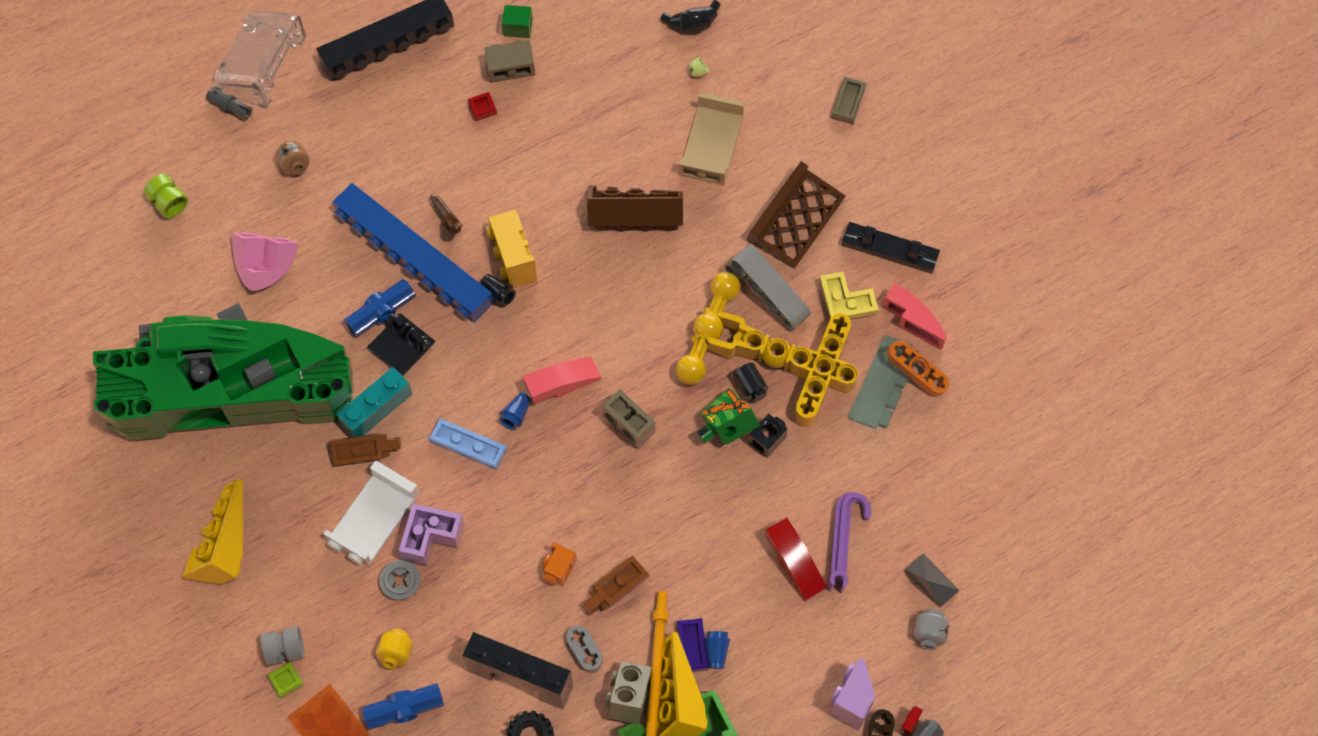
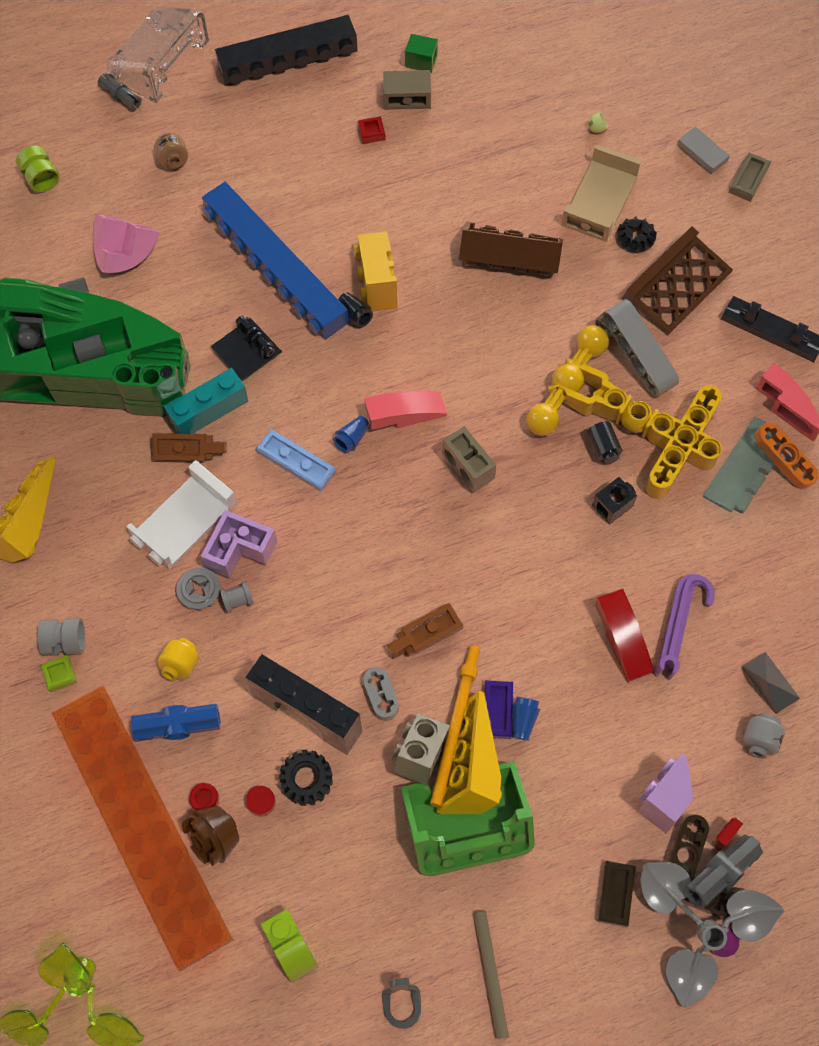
camera: 10 degrees right, 0 degrees up
(379, 307) = (229, 308): blue piece -> none
(437, 582) = (236, 597): none -> light grey bush
(451, 223) = (319, 236): reddish brown piece -> none
(558, 565) = (369, 600): orange brick -> none
(693, 19) = (600, 76): black piece -> none
(727, 419) = (574, 475): green torso -> none
(755, 182) = (640, 243): none -> black gear
(801, 80) = (703, 150): none -> light grey tile
(839, 299) = (711, 371): light yellow plate -> none

